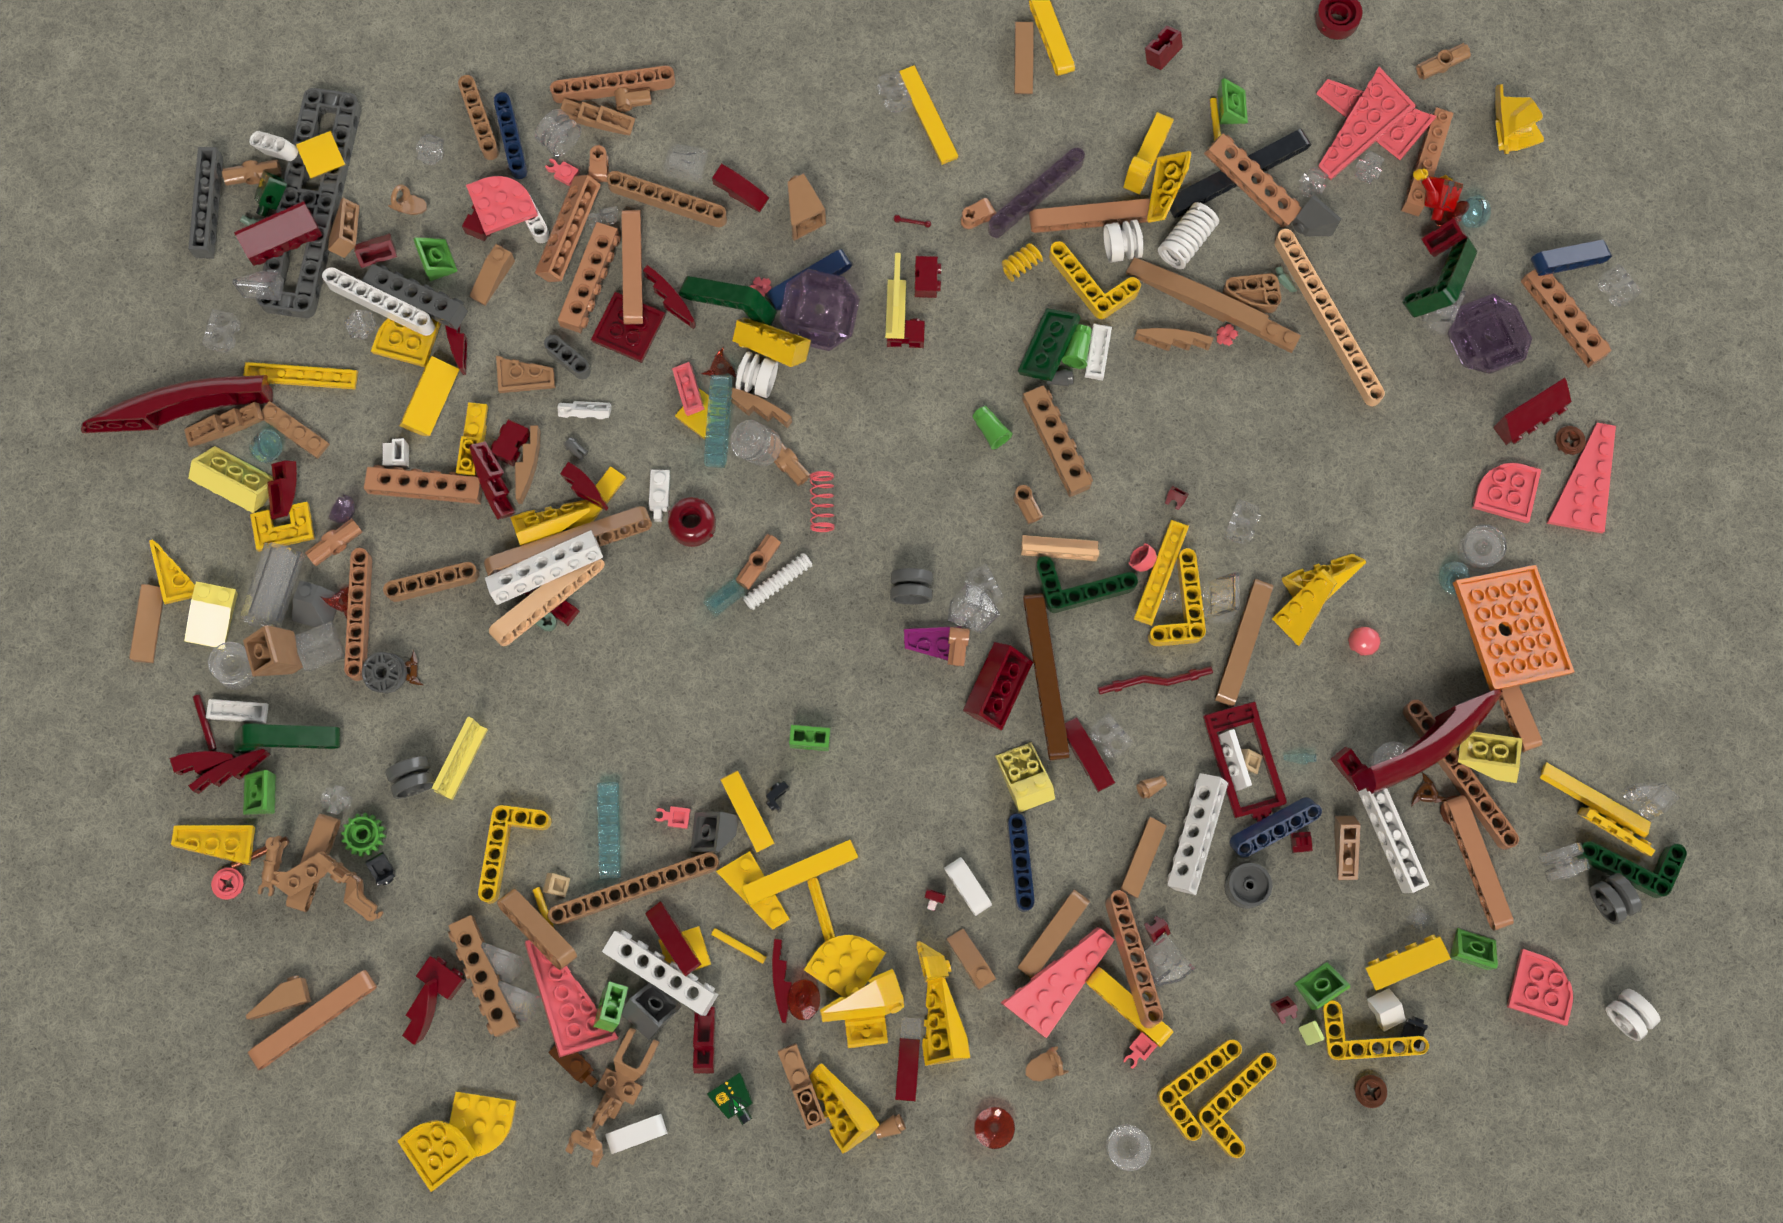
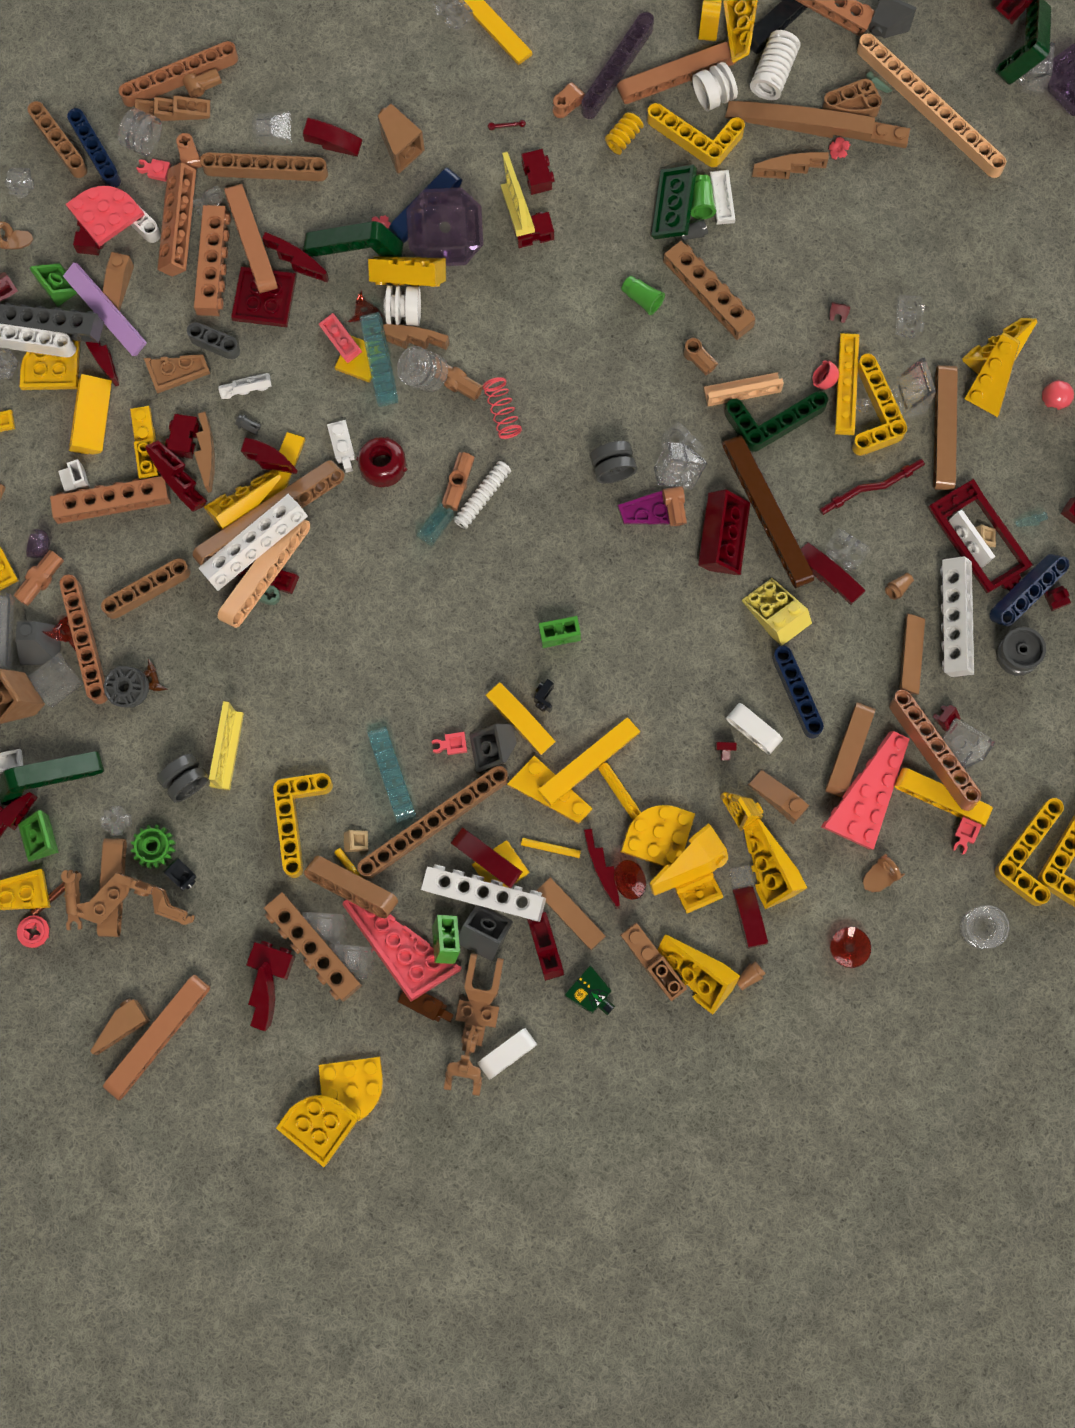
camera: 10 degrees left, 0 degrees up
(473, 297) = (105, 309): none -> lavender tile
(738, 1015) = (571, 914): none -> medium nougat tile

